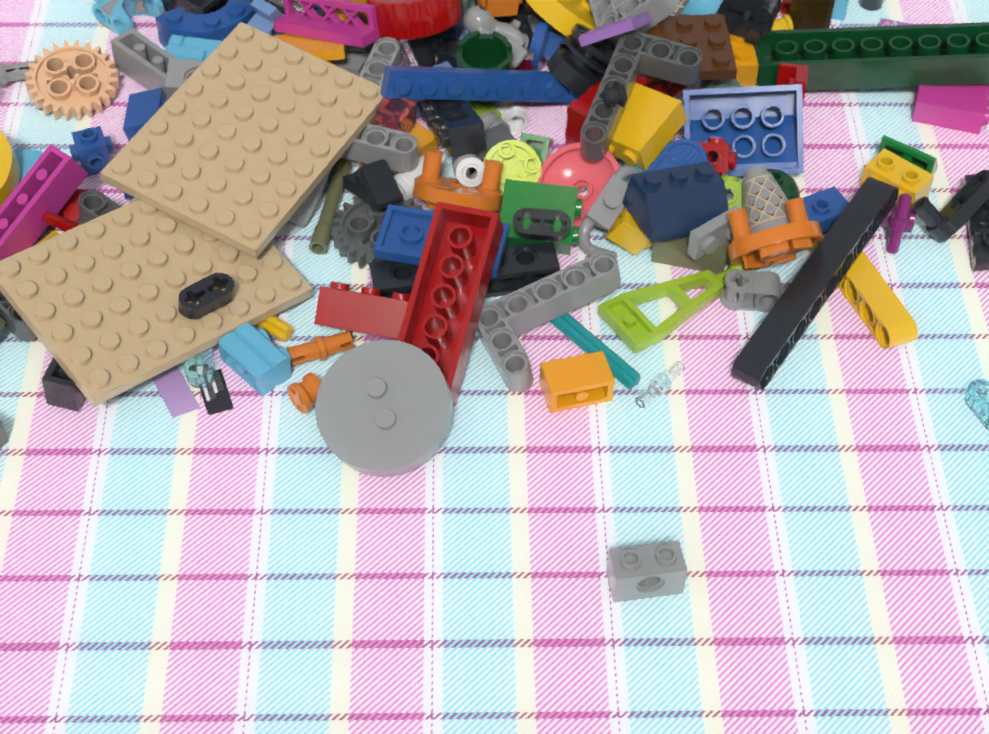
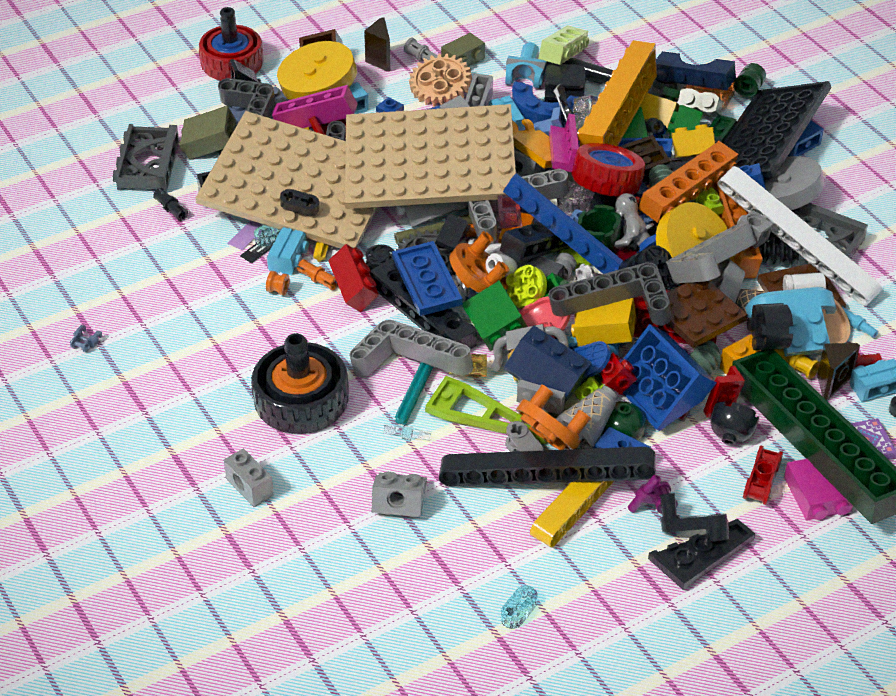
camera: 60 degrees right, 5 degrees down
(38, 32) = (467, 47): none -> olive brick
(44, 443) = (170, 204): none -> black pin
(227, 662) = (90, 342): none -> sand blue piece
(348, 271) = (378, 255): none -> black wheel
(384, 408) = (279, 308): light grey brick -> none
(452, 287) = (371, 297): red brick -> none
(526, 448) = (300, 386): none -> black wheel
(544, 218) = (483, 313): black beam -> none
(576, 381) = (375, 391): light orange brick -> none
(615, 28) = (655, 258): medium lavender tile -> none
(615, 95) = (591, 284): black piece -> none
(763, 432) = (410, 486): none -> light grey brick
(833, 114) = (733, 422): none -> black cylinder
(899, 173) = (697, 483): yellow brick -> none
(910, 154) = (732, 484): green slope -> none
(912, 127) = (763, 475): none -> red piece

